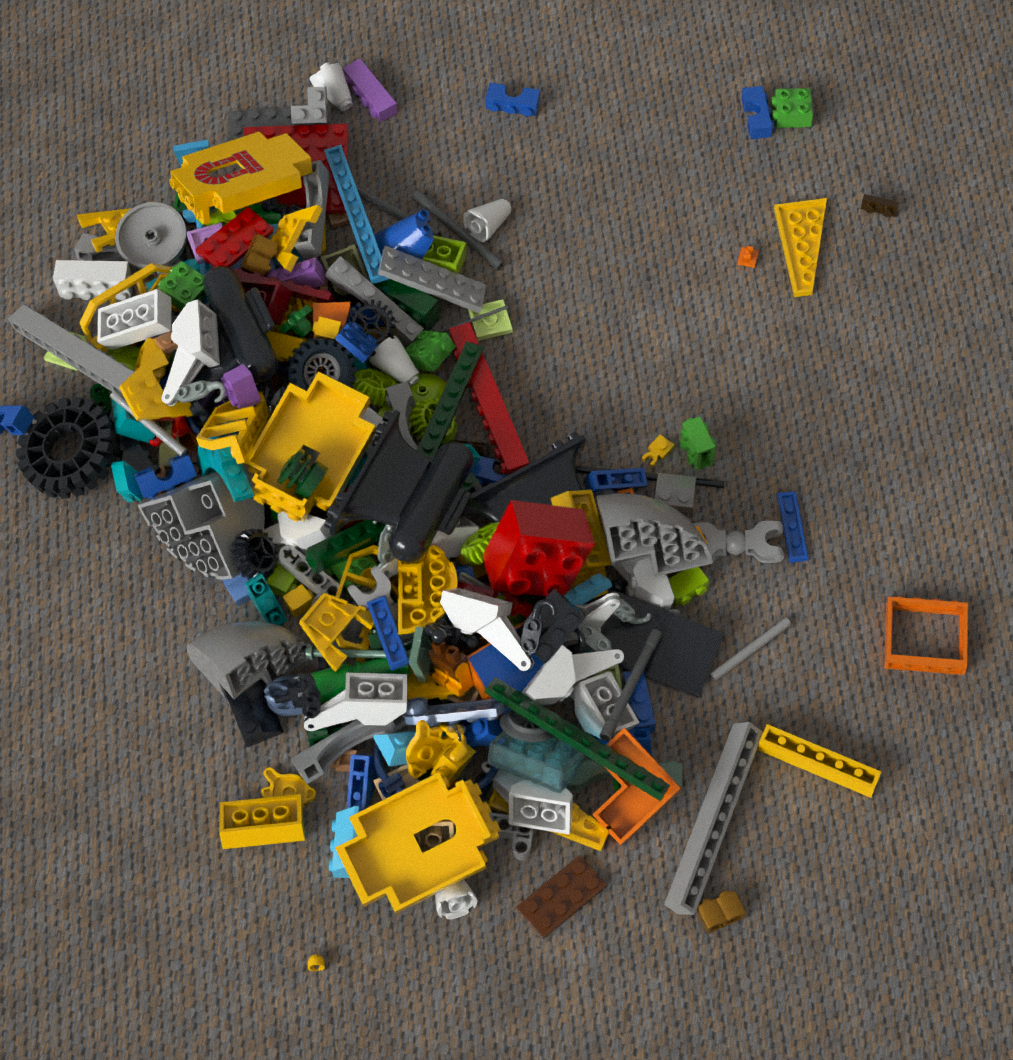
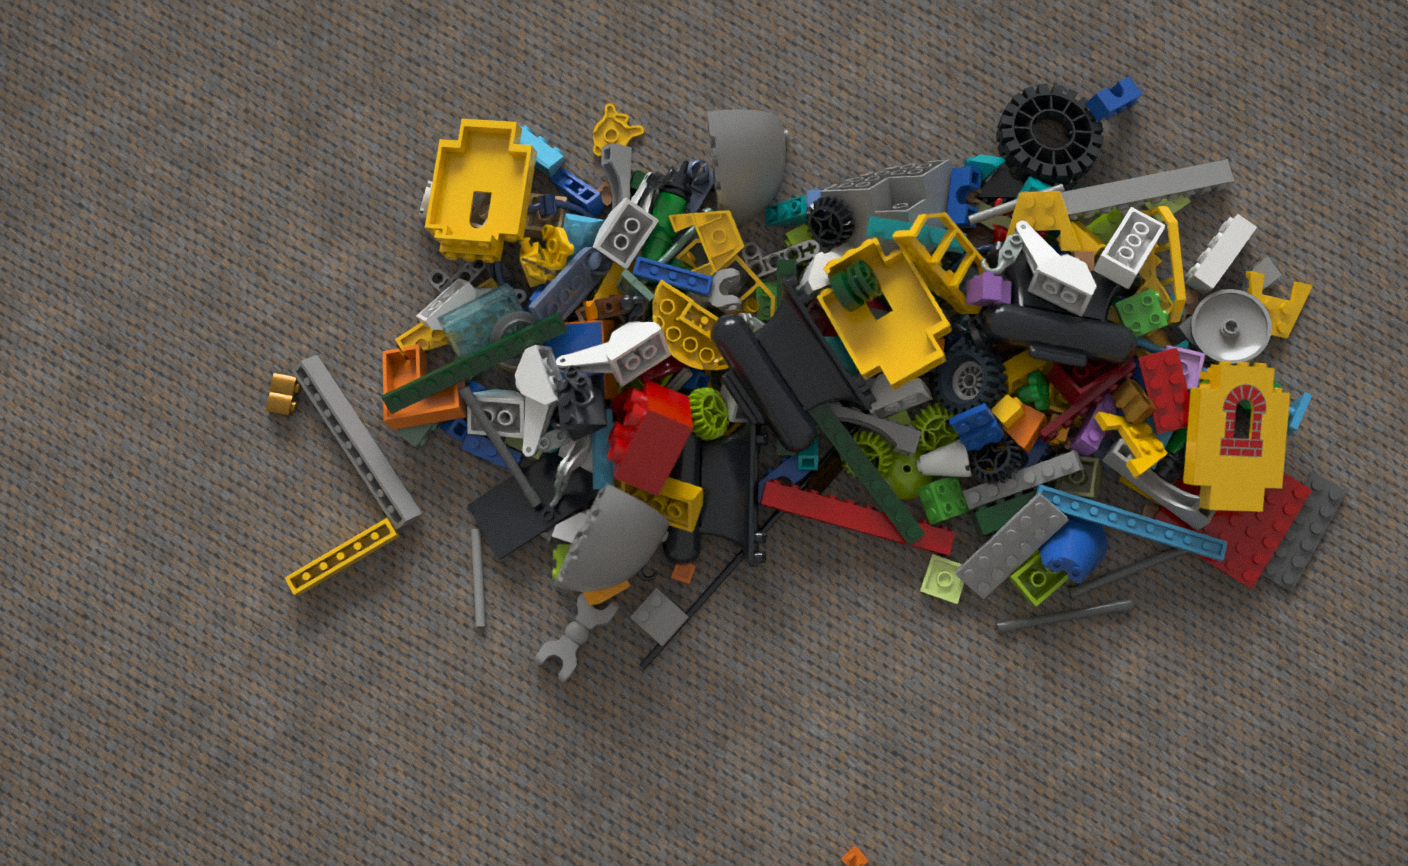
camera: 125 degrees right, 20 degrees up
(254, 715) = (689, 144): black slope -> none
(261, 821) = (599, 98): yellow slope -> none
(298, 600) = (773, 240): yellow brick -> none
(315, 111) = (1285, 562): light grey brick -> none
(316, 960) = (459, 73): yellow hinge -> none
(337, 87) = (1308, 605): white cone -> none
(369, 90) = (1283, 637): medium lavender brick -> none
(476, 318) = (954, 556): dark grey piece -> none
(486, 219) = (1055, 649): white cone -> none
(498, 100) = (1167, 776): blue arch -> none
(561, 896) = (382, 286): reddish brown plate -> none
(616, 479) = (704, 573): blue slope -> none
(658, 449) = (713, 636): yellow plate -> none
(697, 443) = (694, 668): bright green brick -> none
(792, 527) = (562, 695): blue tile -> none
(927, 664) = (360, 709): orange window -> none

